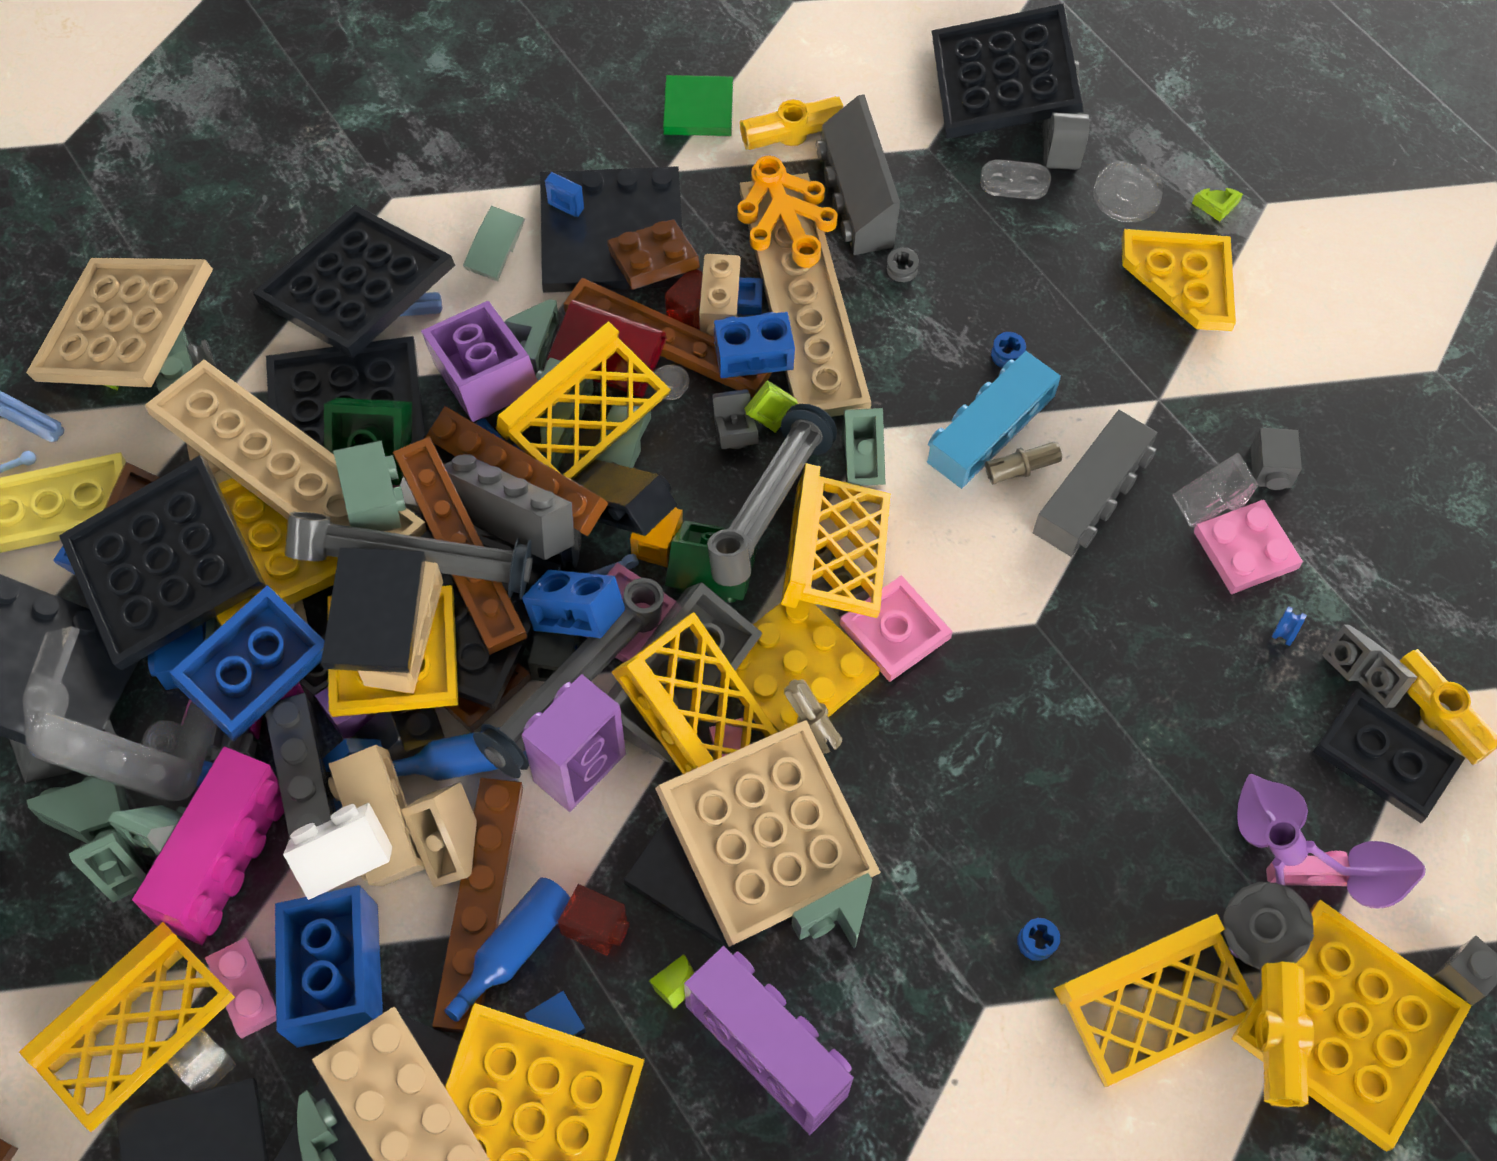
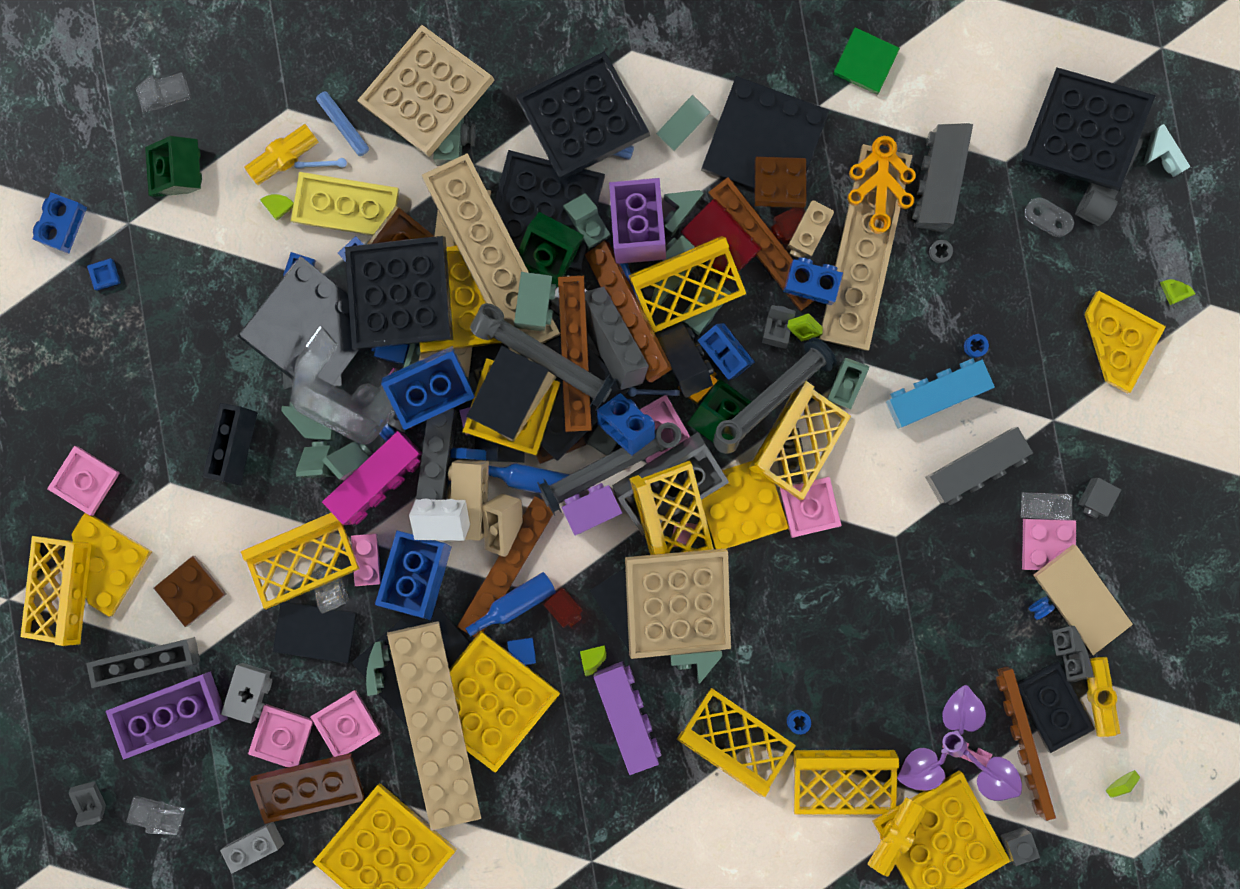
camera: 25 degrees right, 25 degrees up
(404, 383) = (587, 221): none -> sand green slope
(564, 194) = (742, 109): blue tile -> none
(675, 378) = (752, 276): clear plate -> none
(687, 475) = (726, 351): none -> blue brick
(750, 296) = (832, 233): blue tile -> none
(788, 124) = (937, 107): yellow piece -> none
(815, 713) = (734, 546): dark tan axle -> none
(953, 1050) = (730, 764): none -> yellow fence
(1022, 462) = (943, 431): dark tan axle -> none
(1109, 62) = (1163, 145): none -> light aqua slope
(1128, 191) = (1121, 256): clear tile -> none
(1268, 924) = (922, 777): dark grey tile -> none
(1335, 587) = (1083, 599): none -> tan tile
(1374, 808) = (1027, 754): none -> dark orange plate

